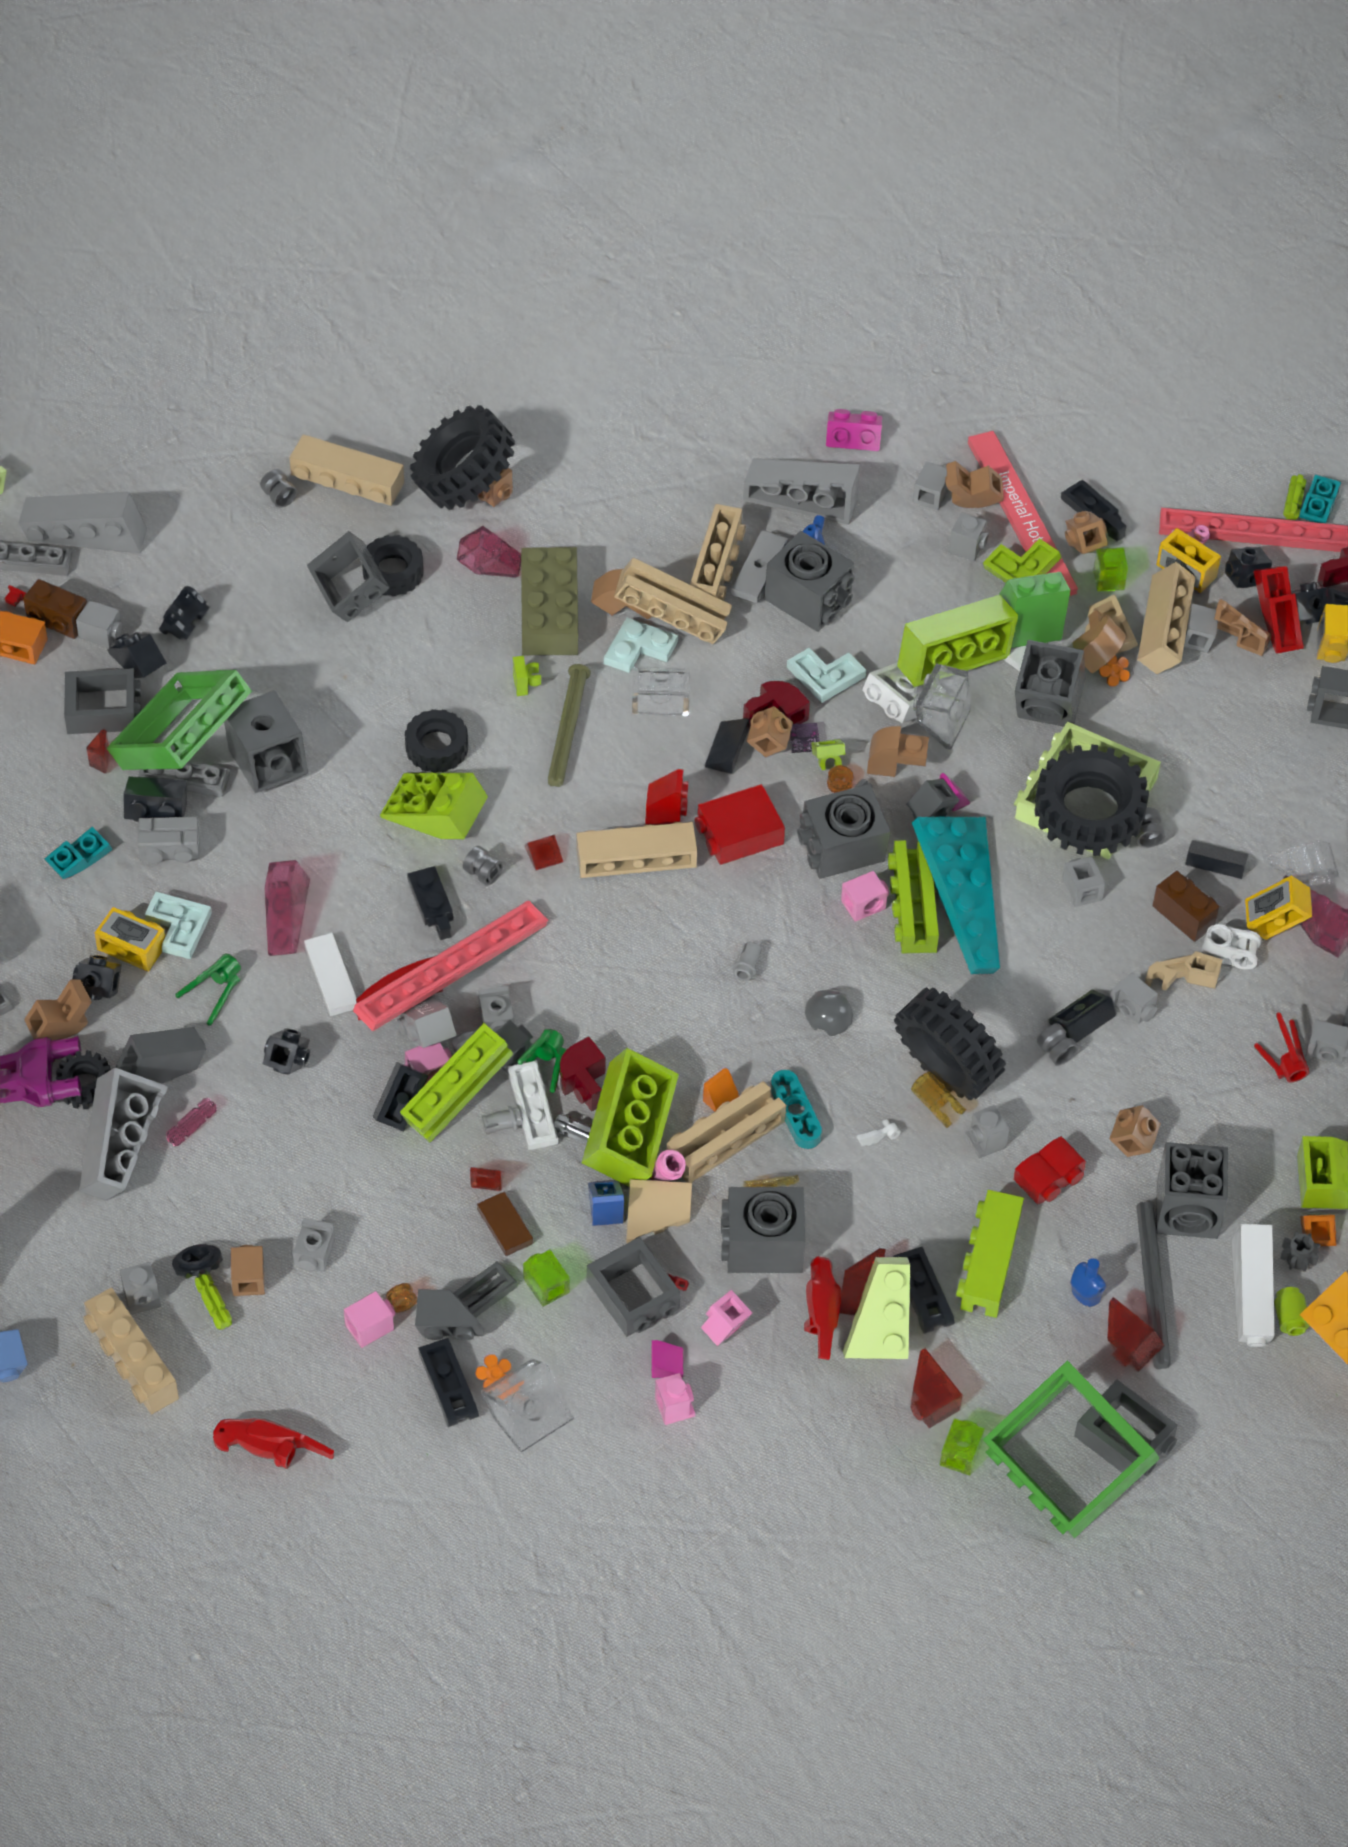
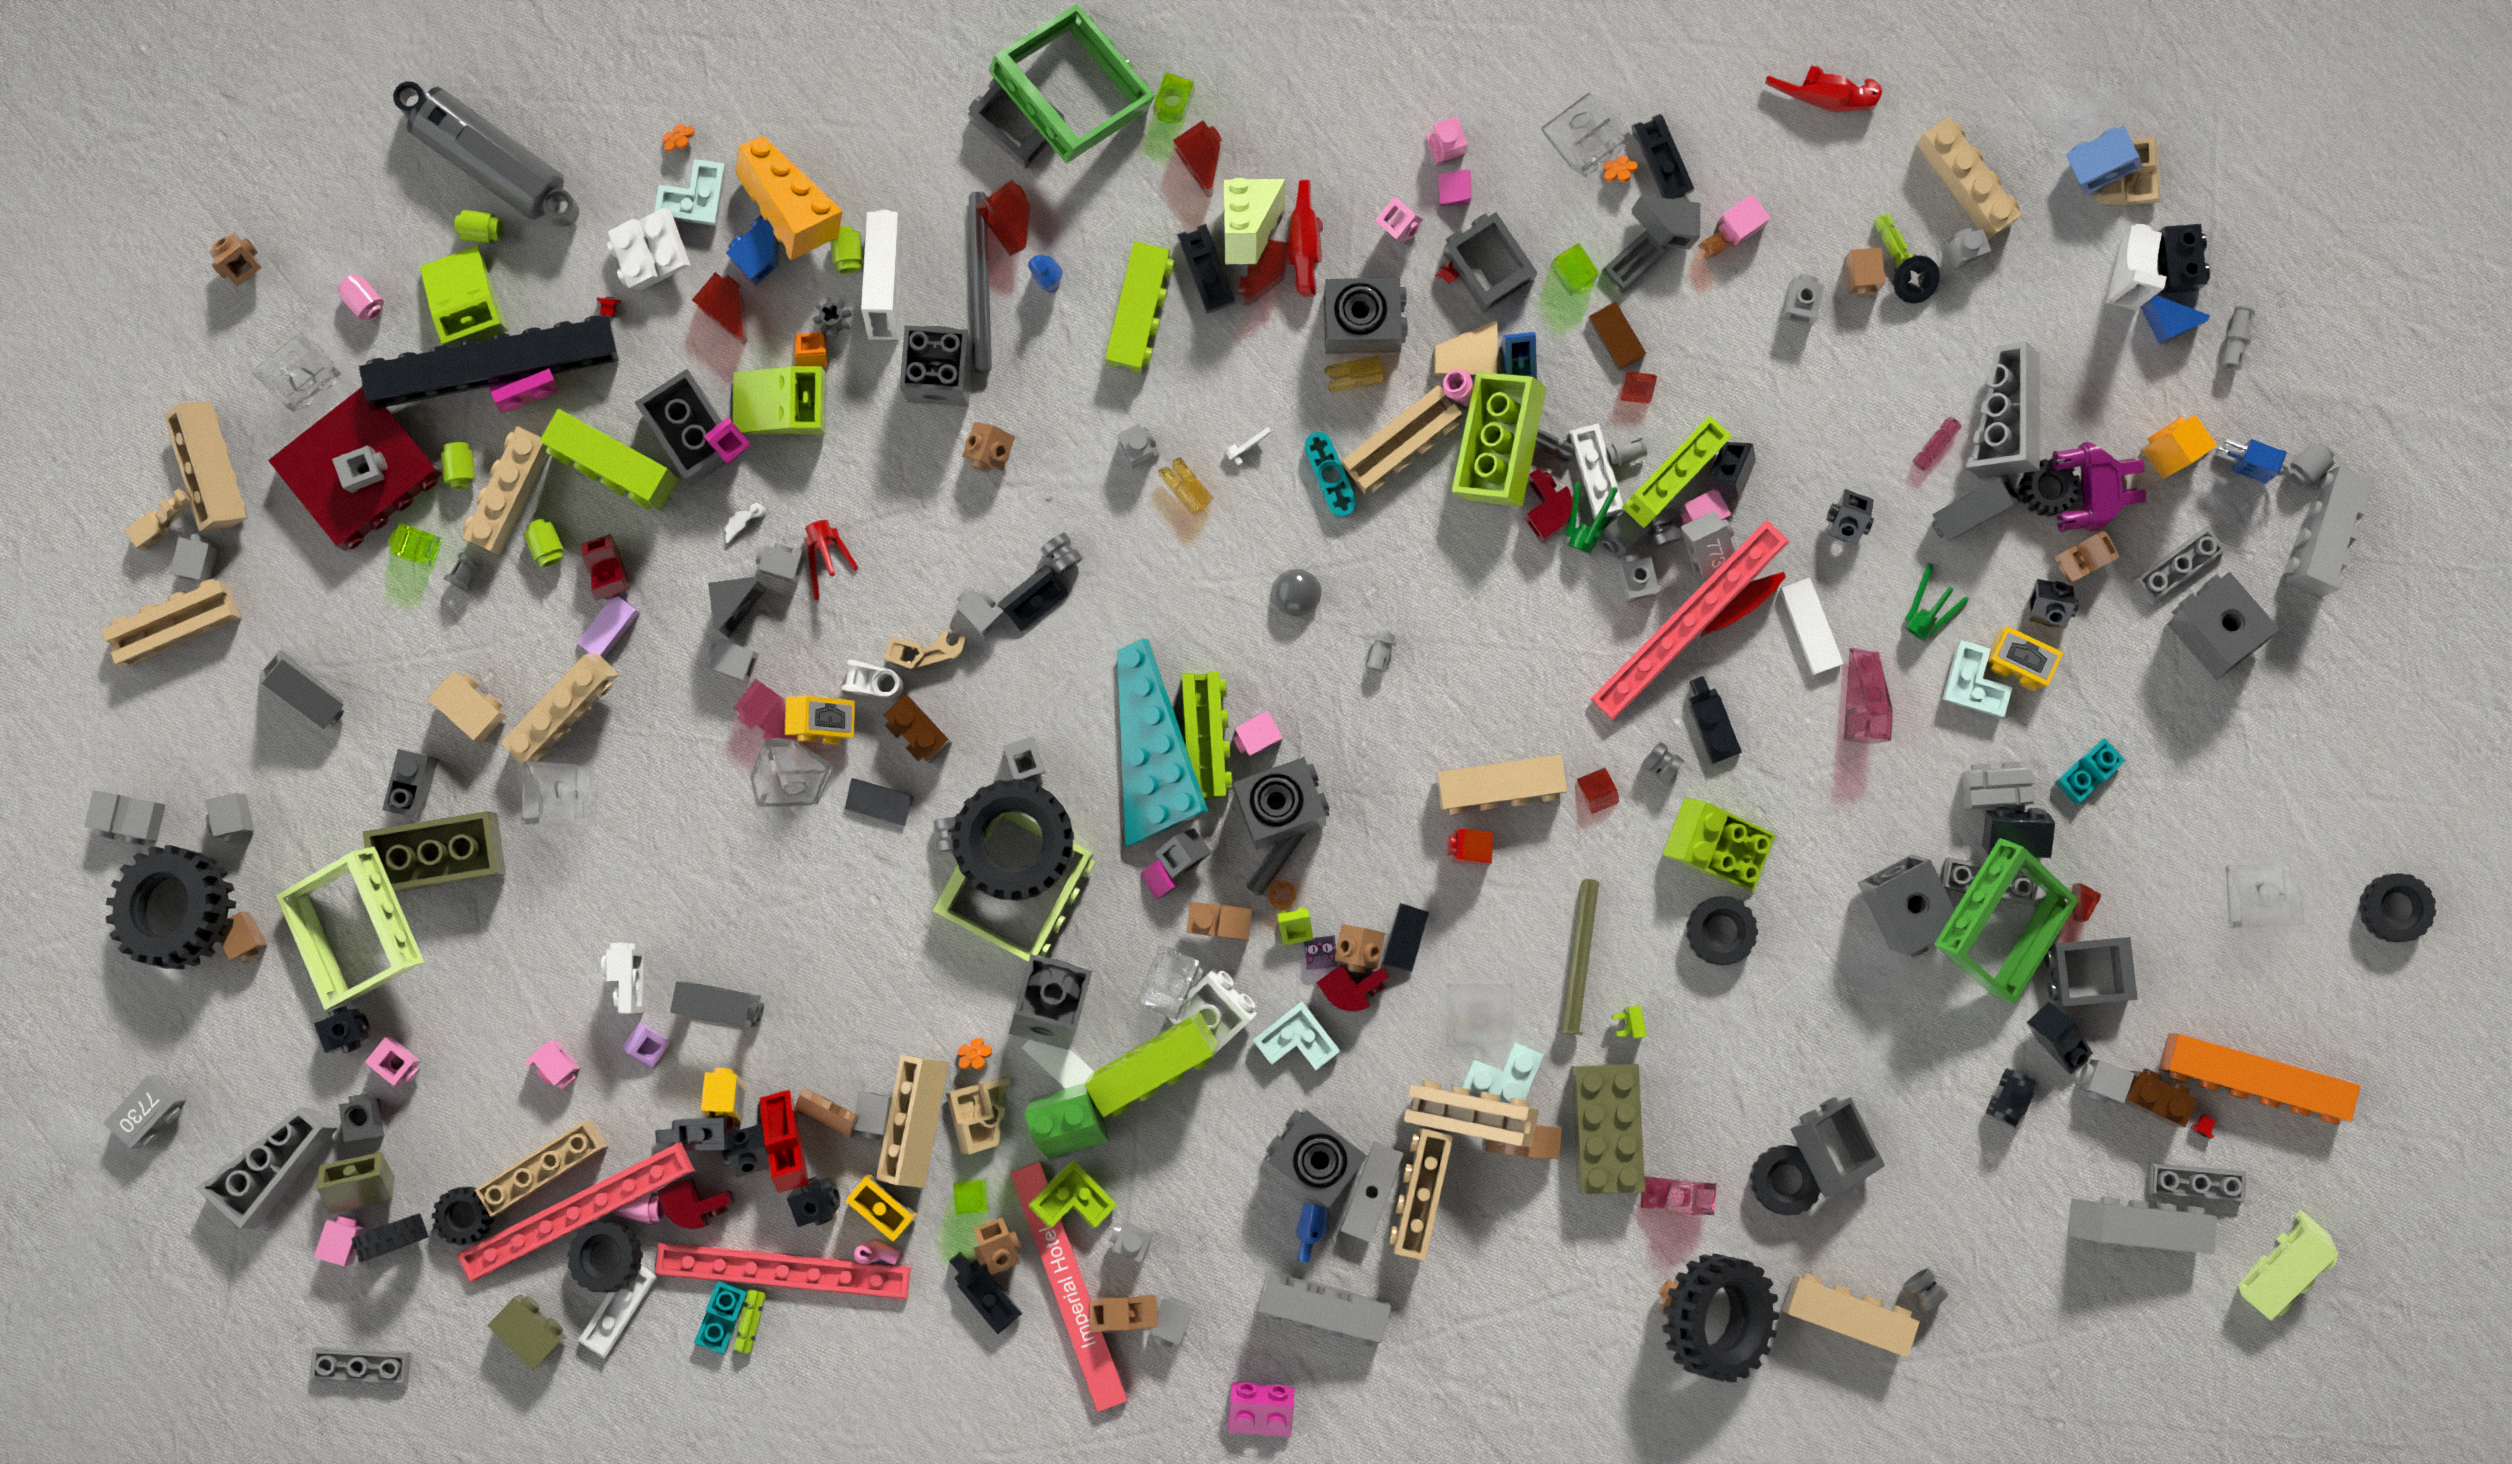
camera: 175 degrees right, 30 degrees up
(719, 1090) = (1406, 490): orange slope -> none
(740, 824) = (1391, 824): red brick -> none
(949, 1043) = (1176, 516): black tyre -> none
(1050, 1170) = (1075, 403): red brick -> none
(1100, 641) = (987, 1077): medium nougat brick -> none

